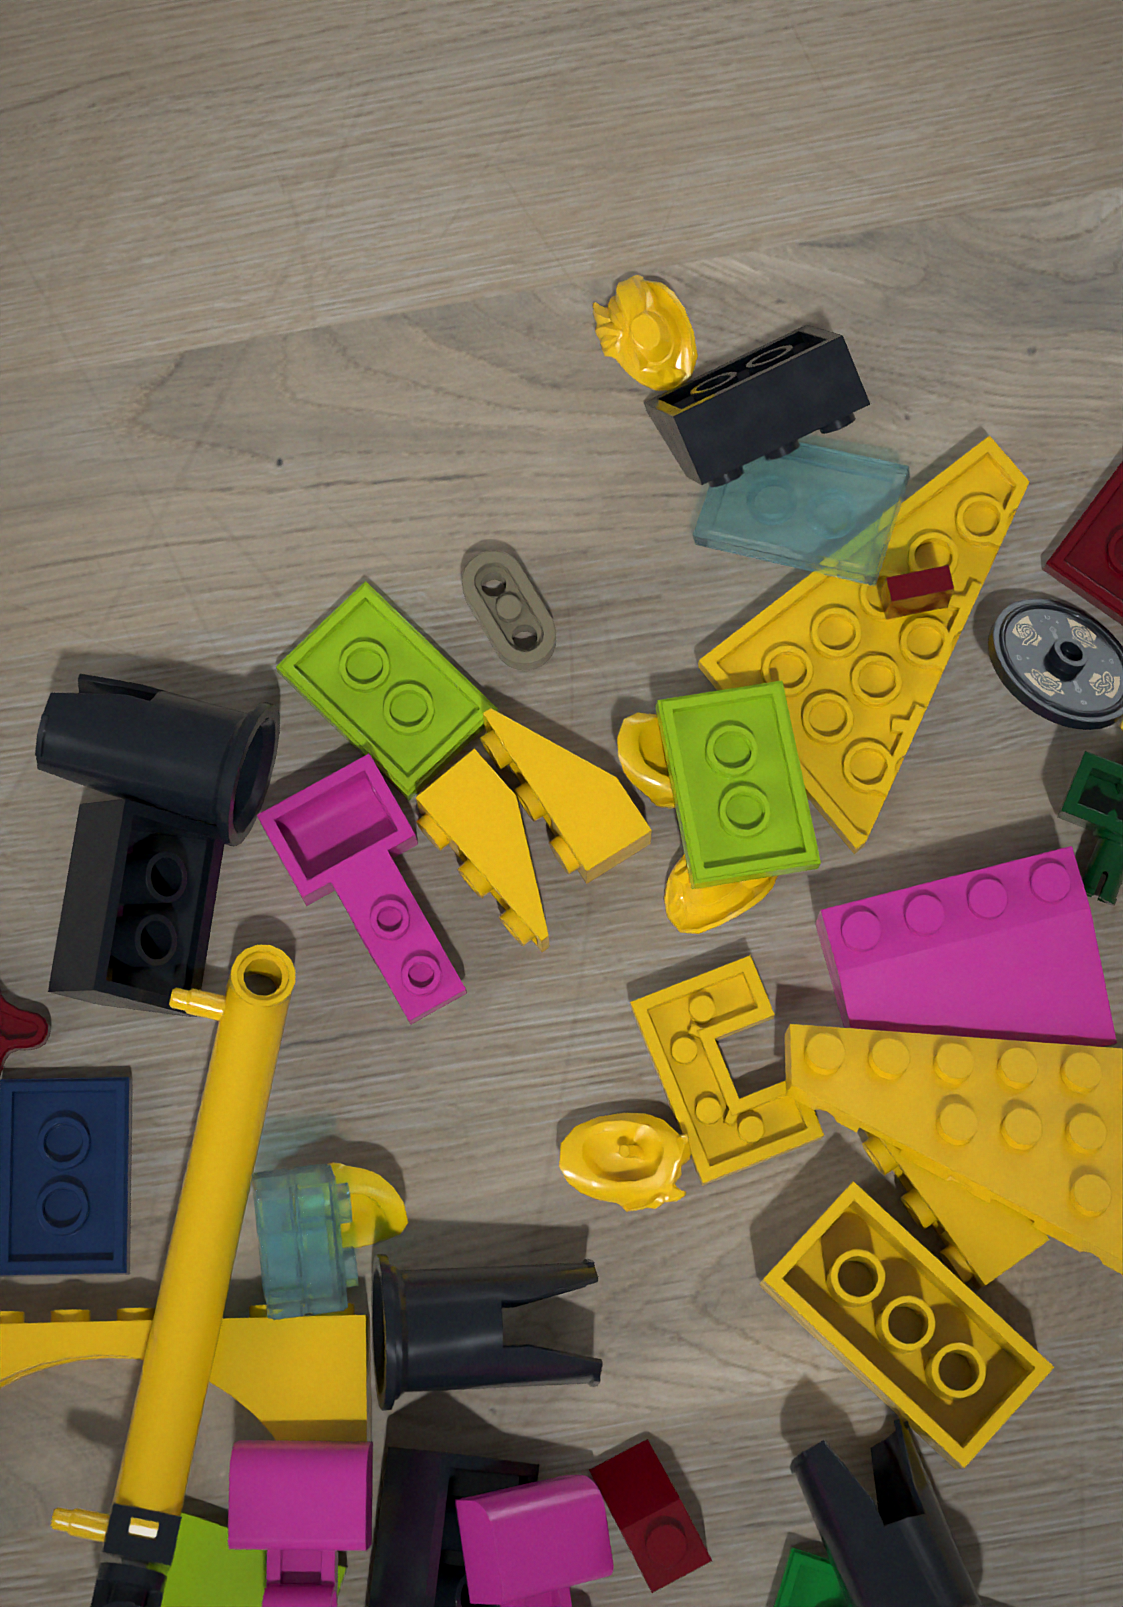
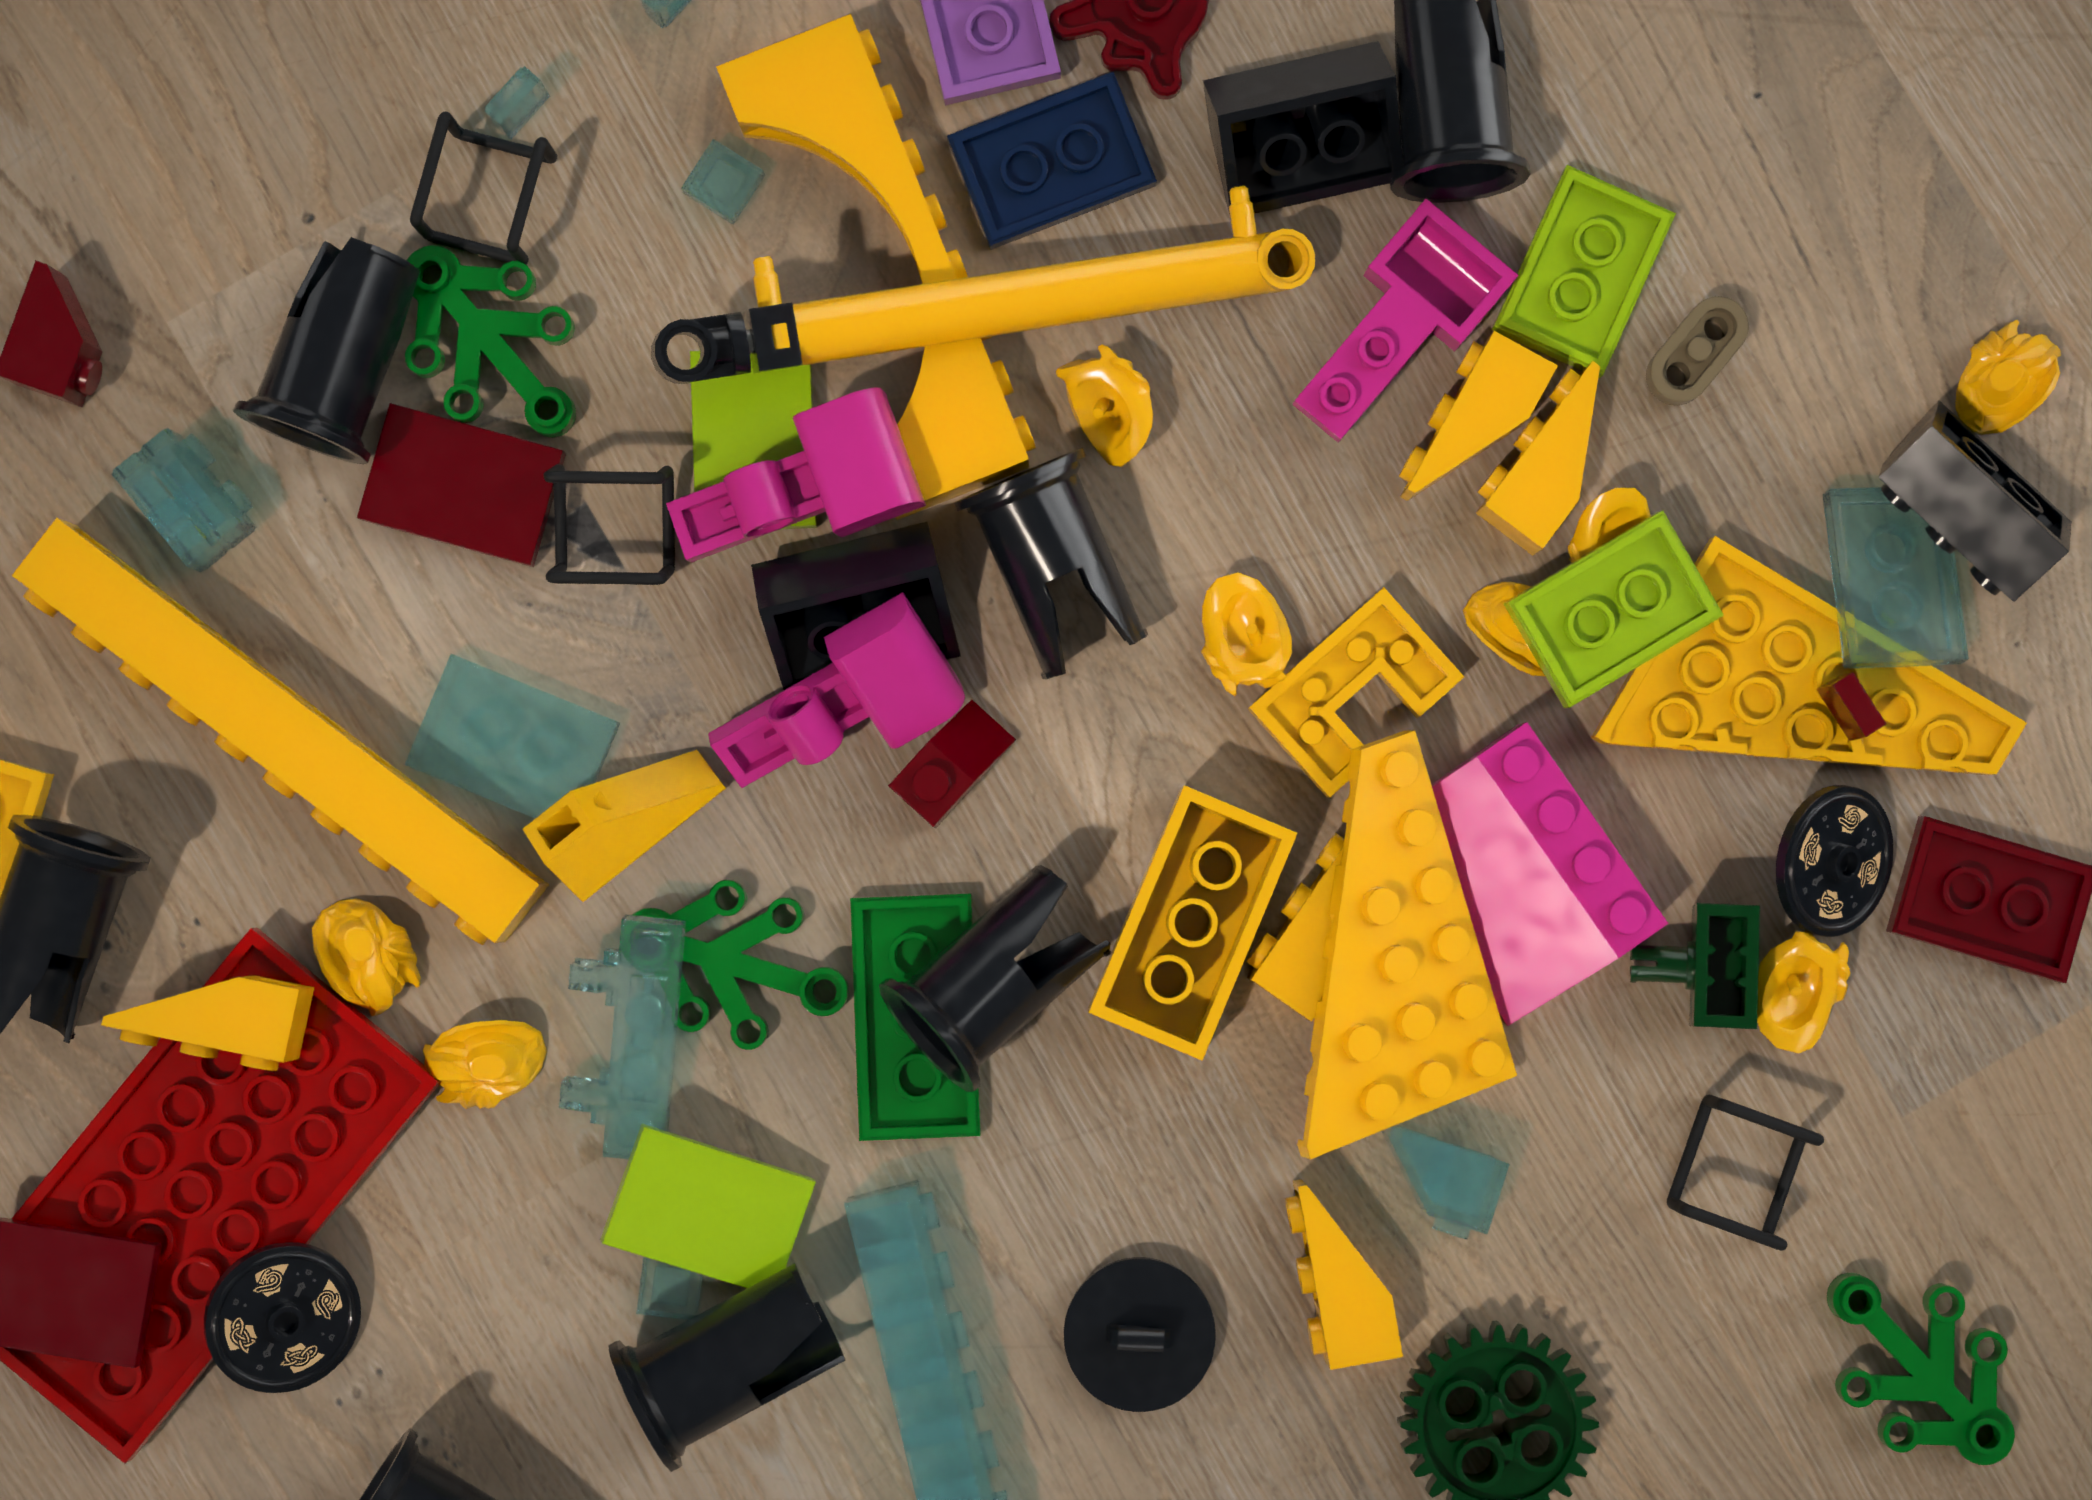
camera: 65 degrees right, 10 degrees up
(302, 1241) = (1071, 379): clear light blue brick -> none

